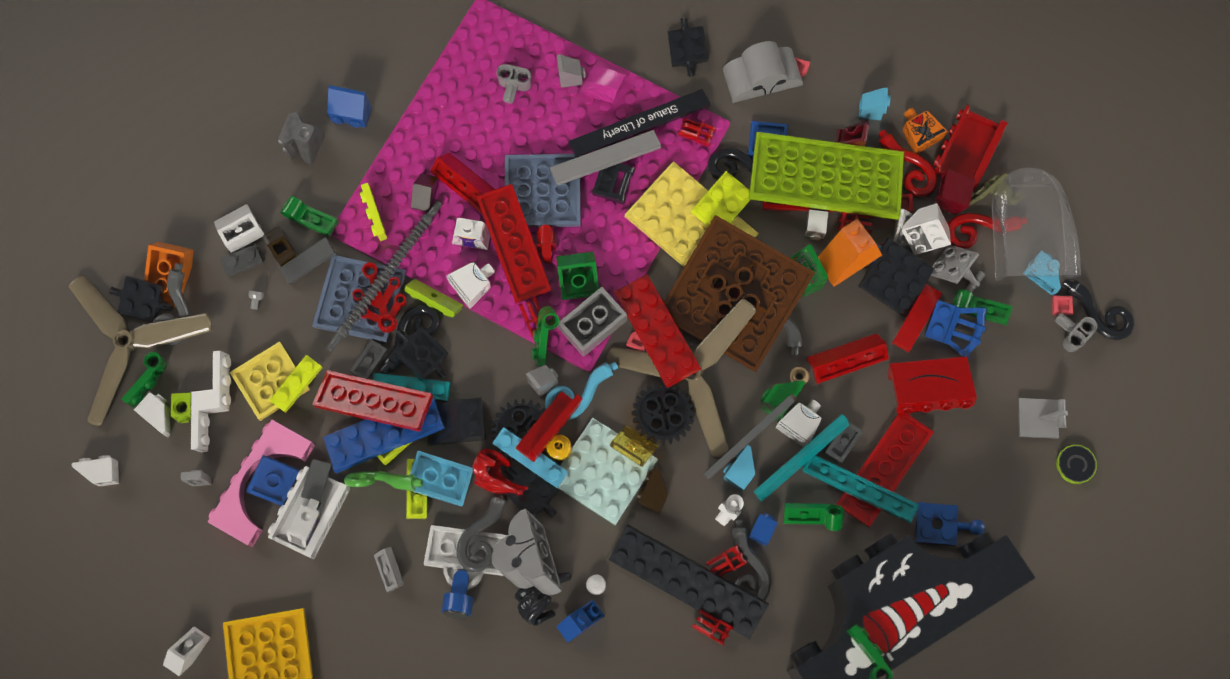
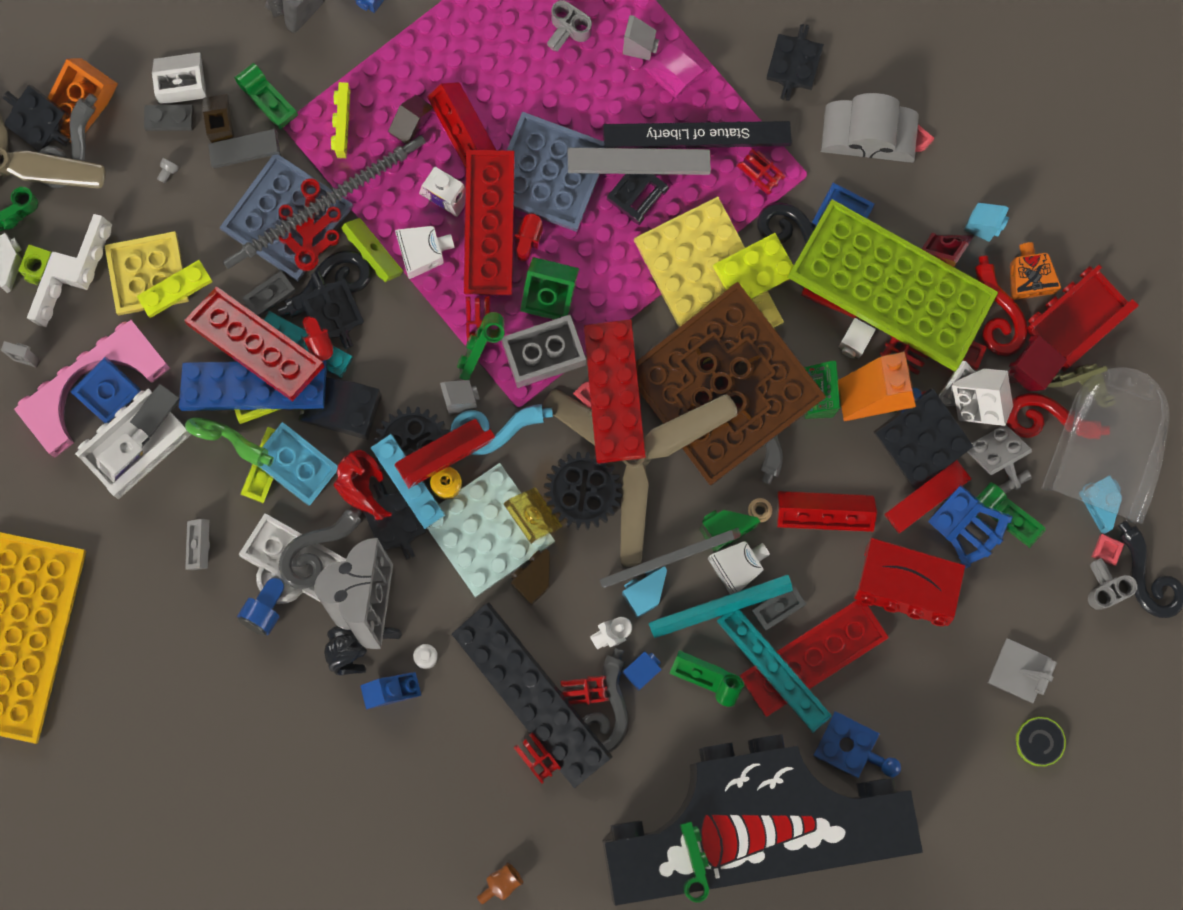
camera: 15 degrees right, 5 degrees up
(419, 378) = (317, 339): none -> red arm

